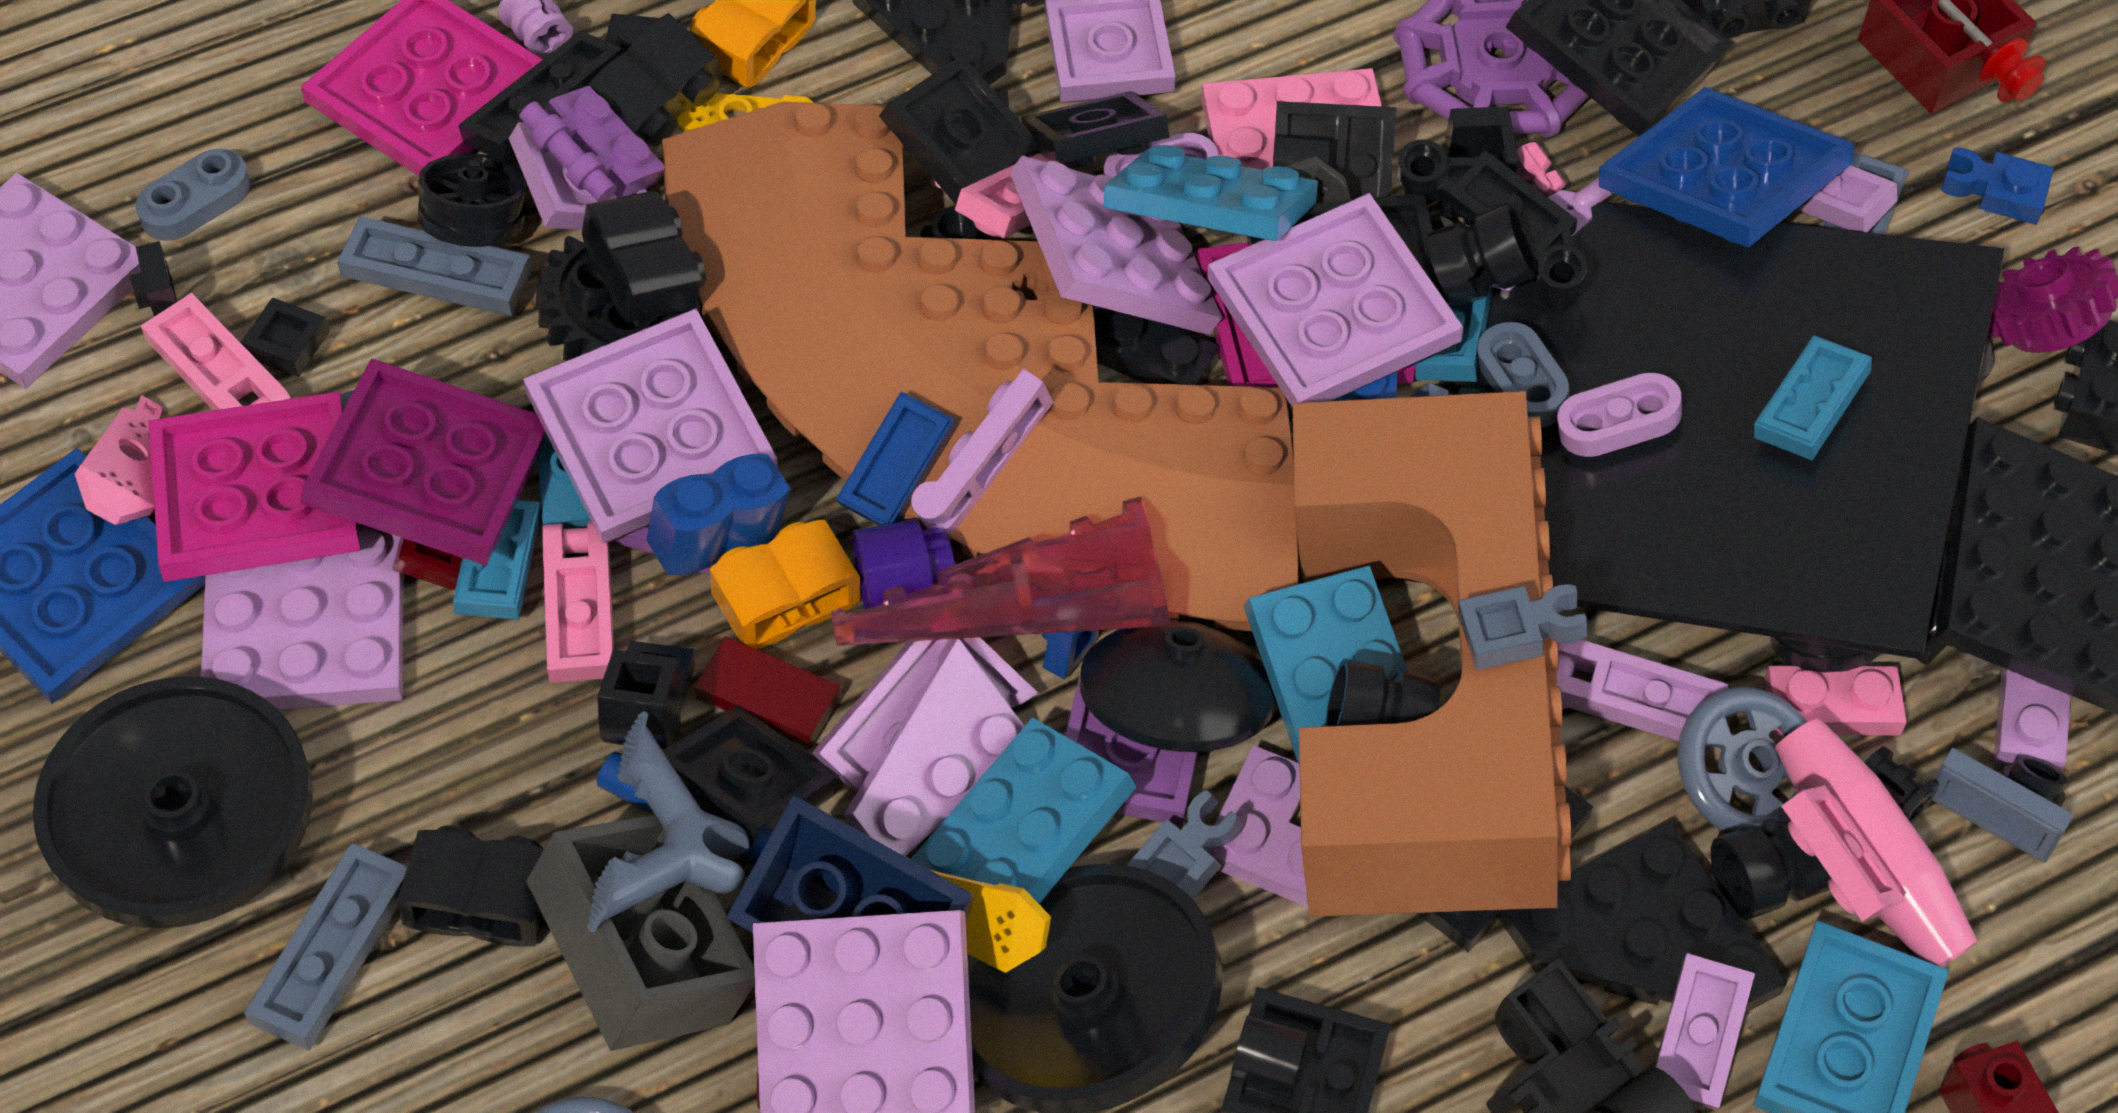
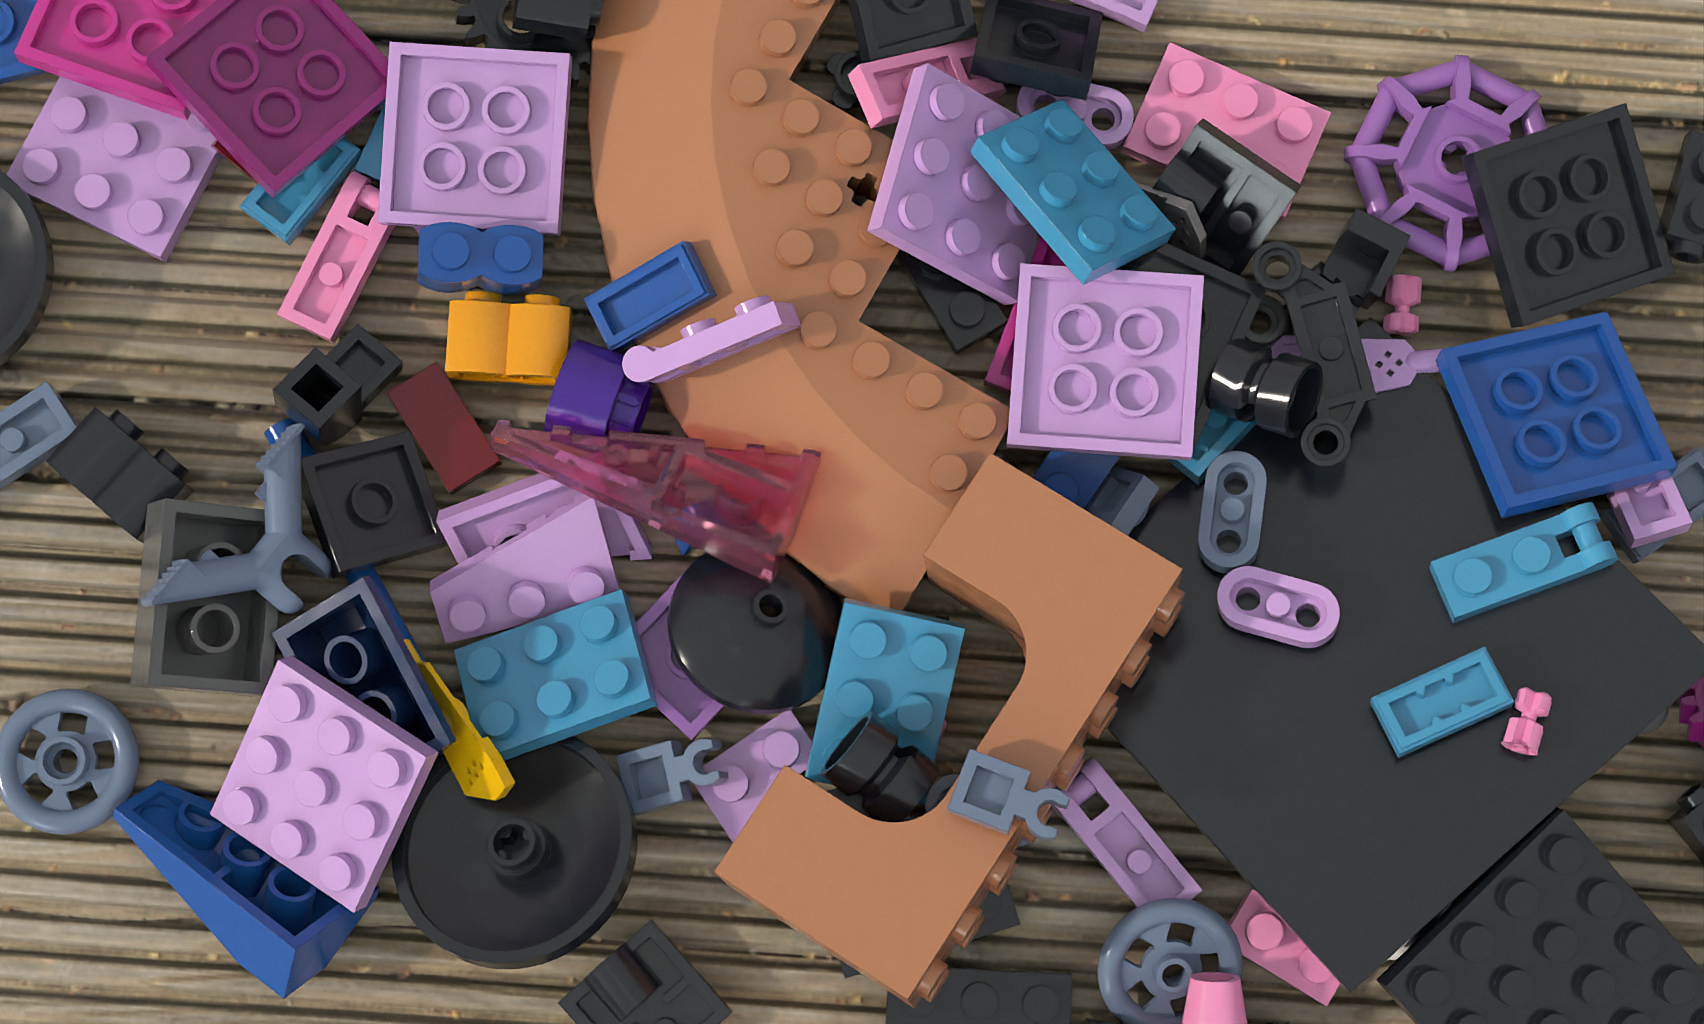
camera: 30 degrees right, 25 degrees up
(1790, 273) = (1521, 563): none -> dark azure plate
(1895, 372) = (1523, 732): none -> bright pink piece

